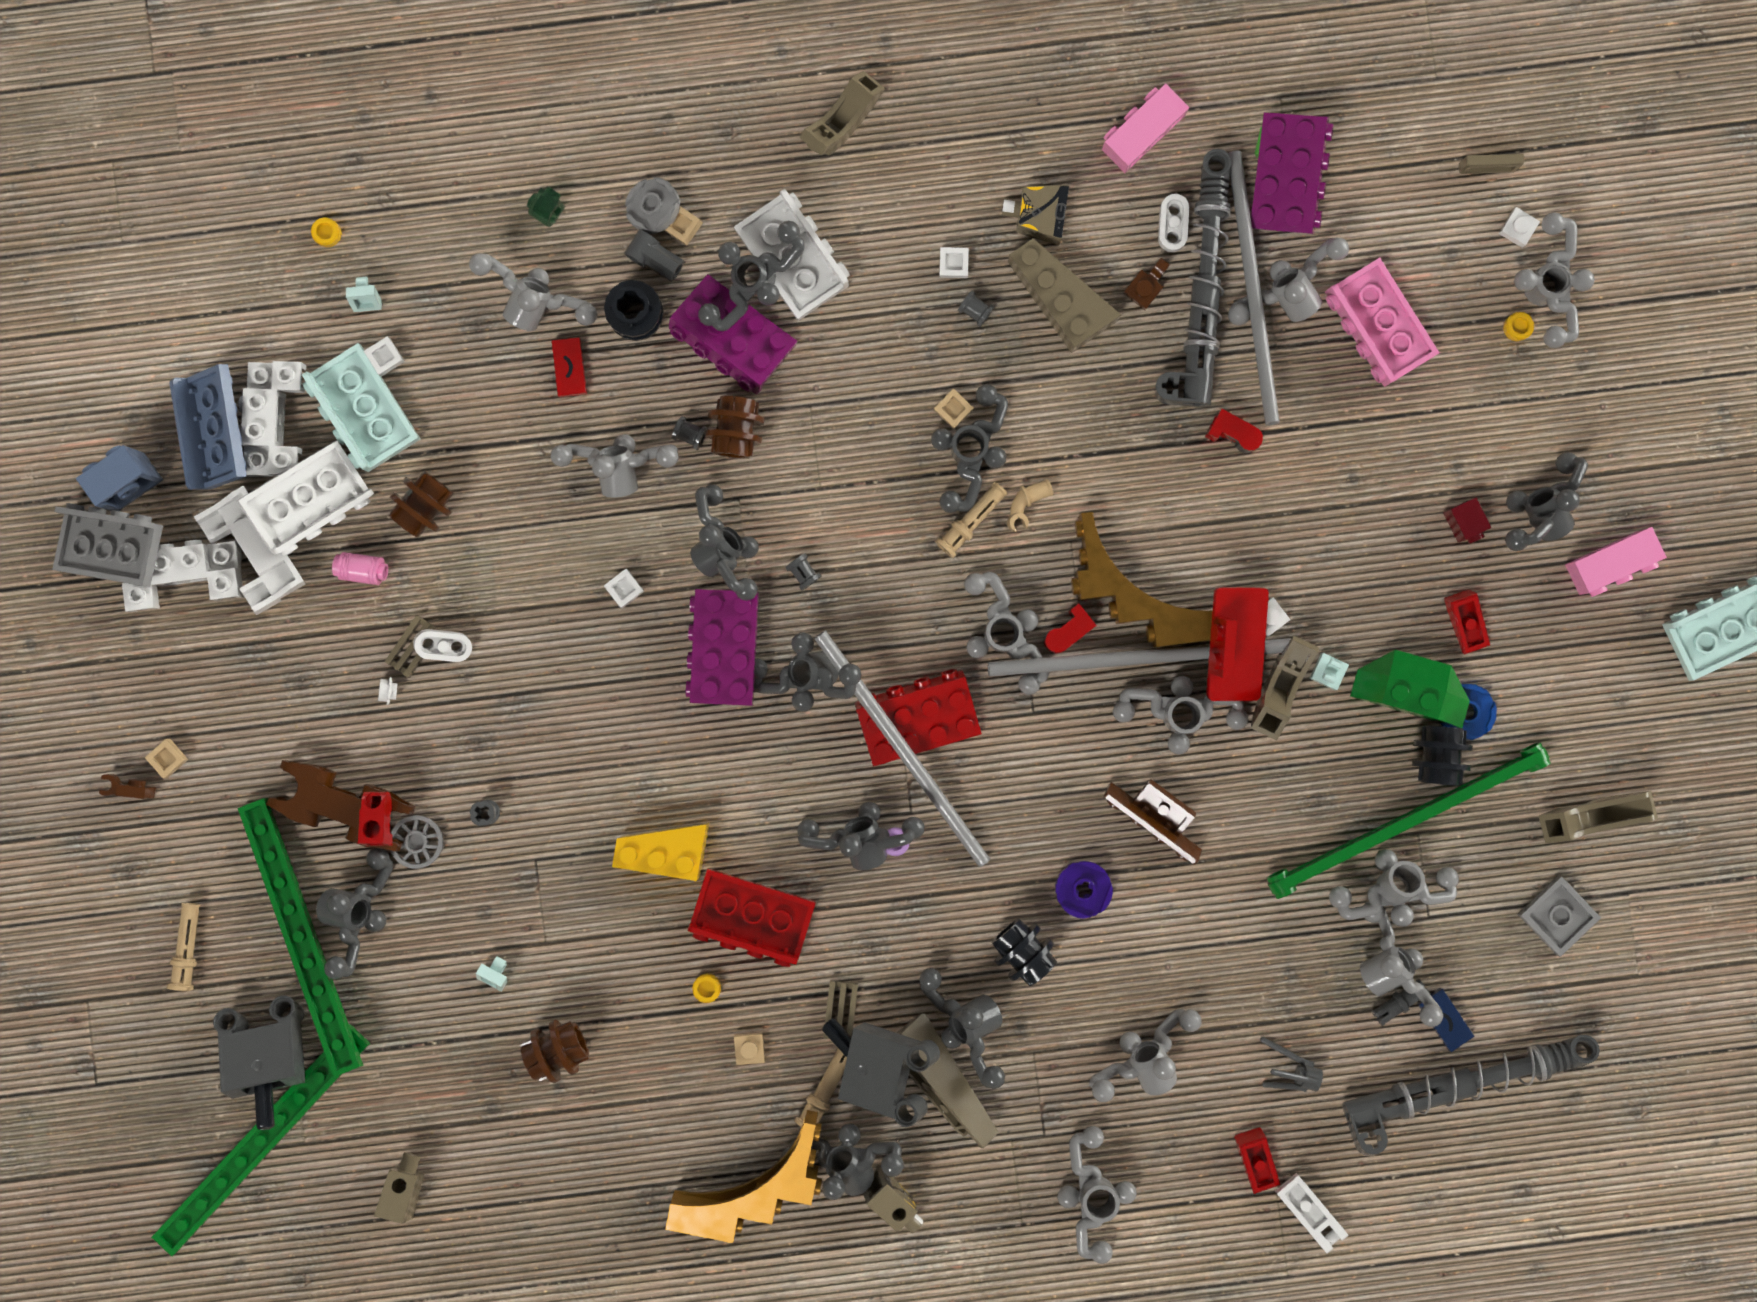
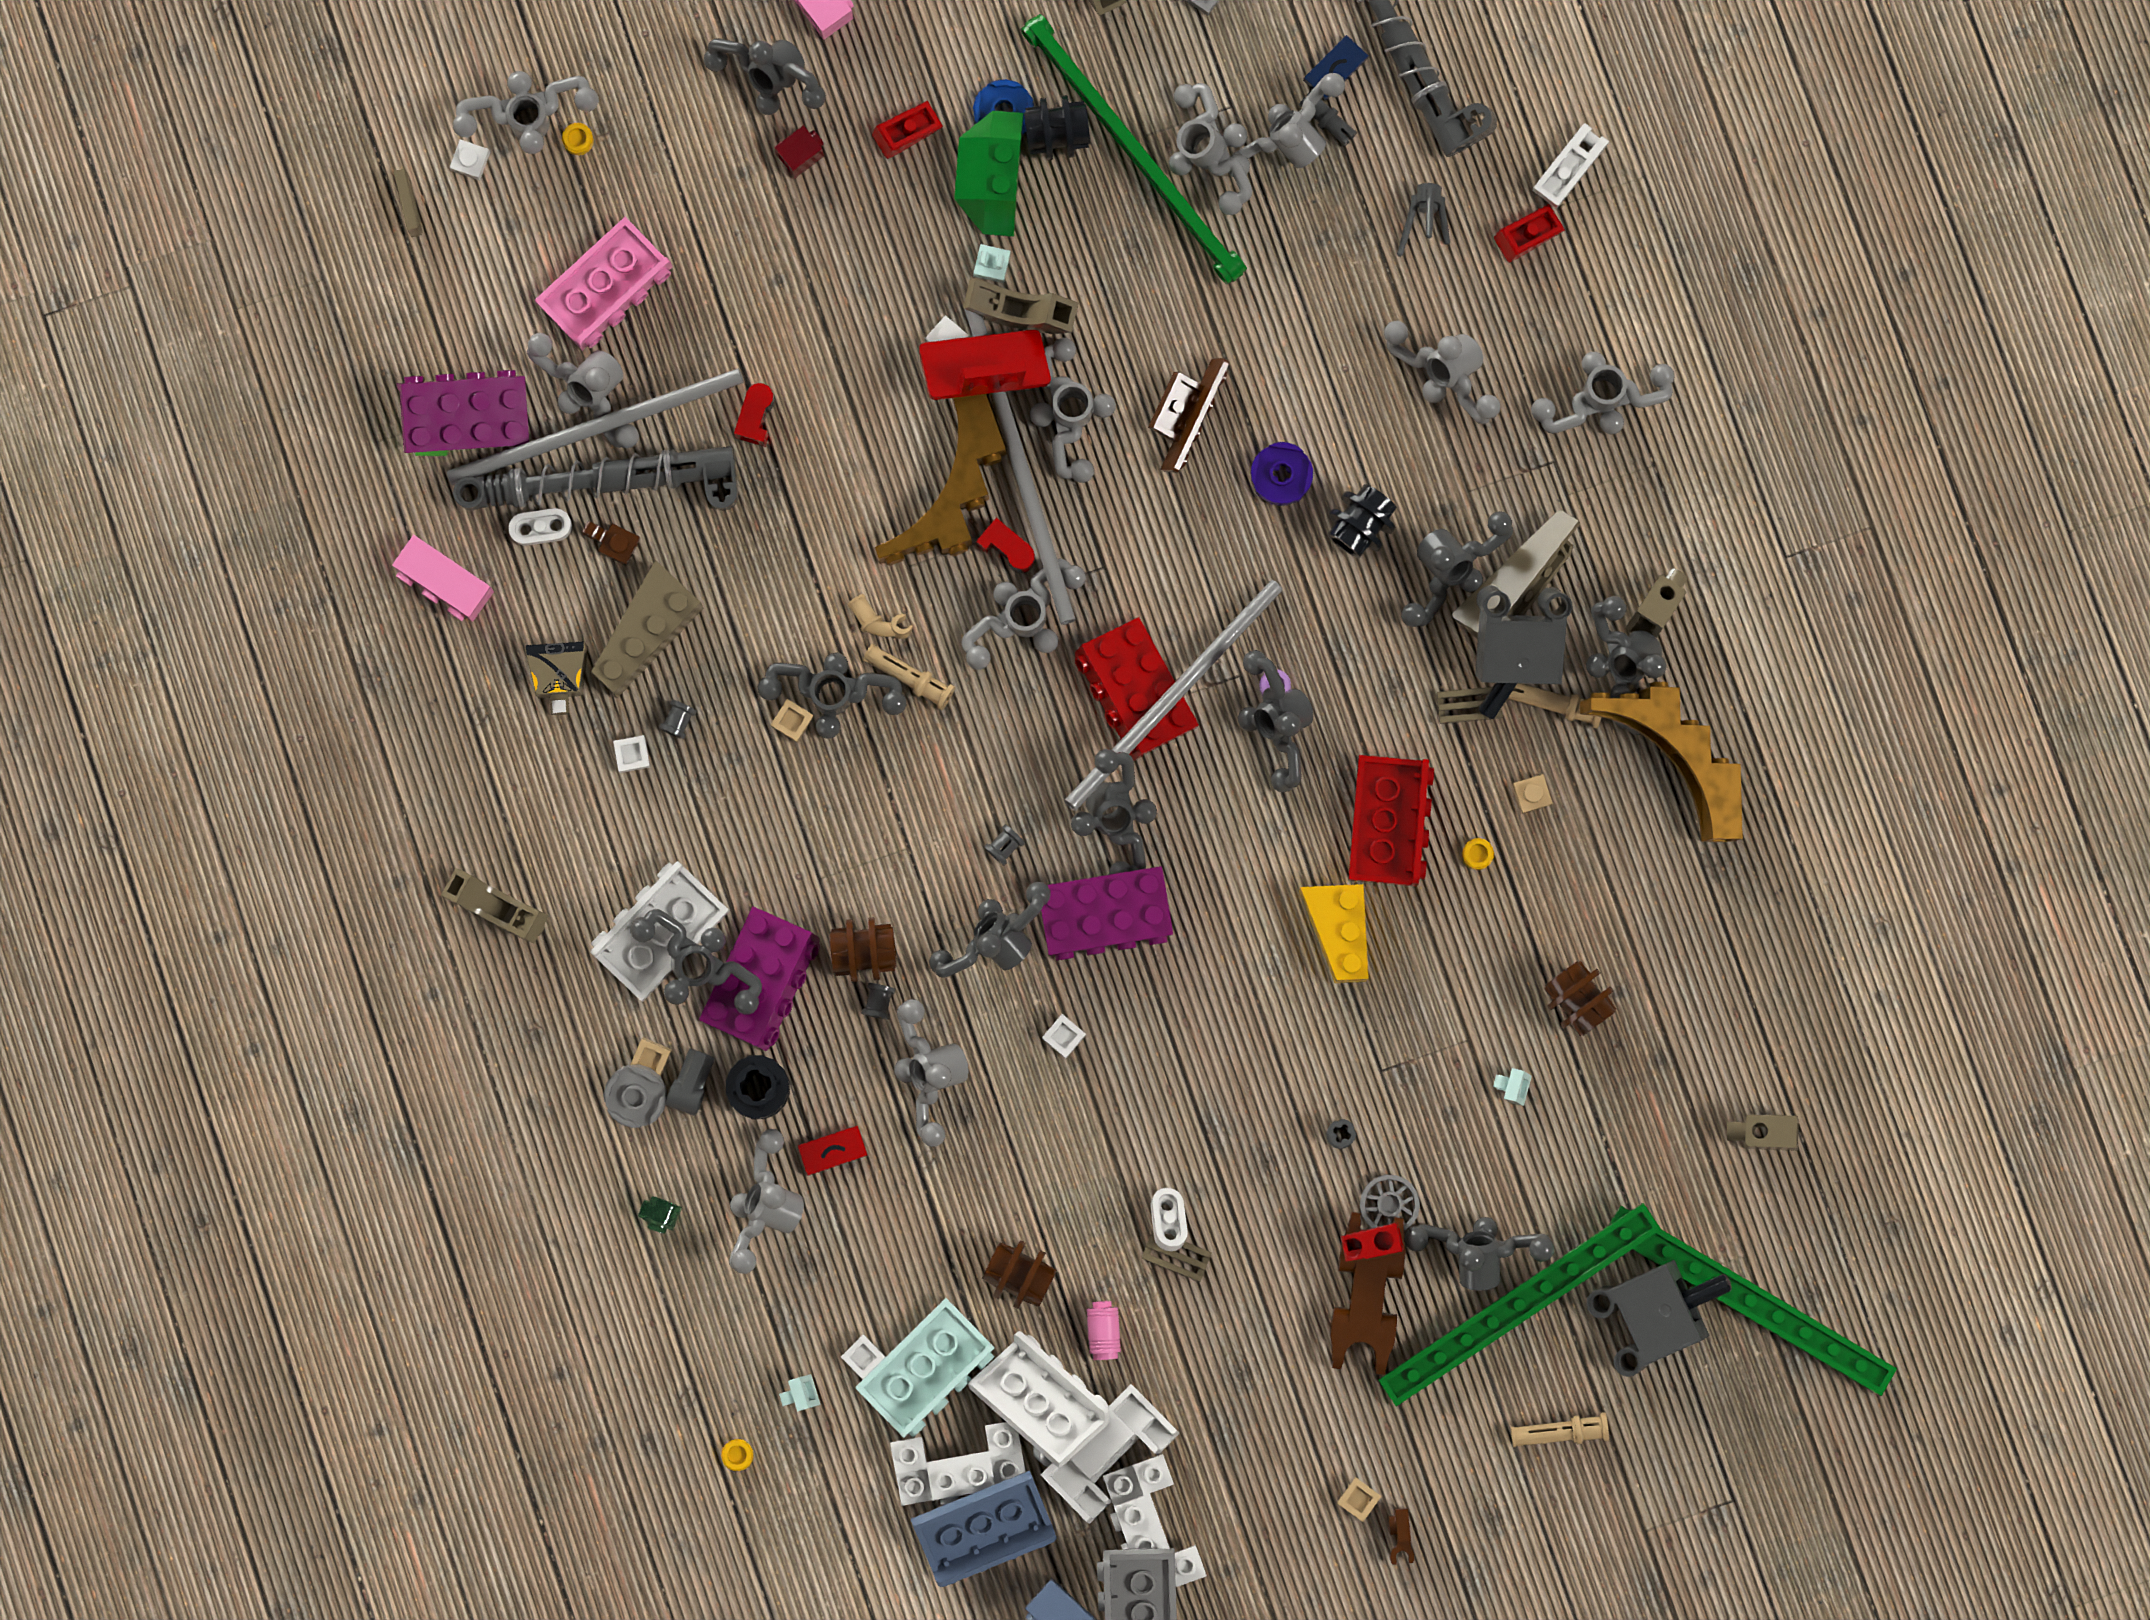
camera: 105 degrees left, 5 degrees down
(387, 690) = (1231, 1271): white plate -> none

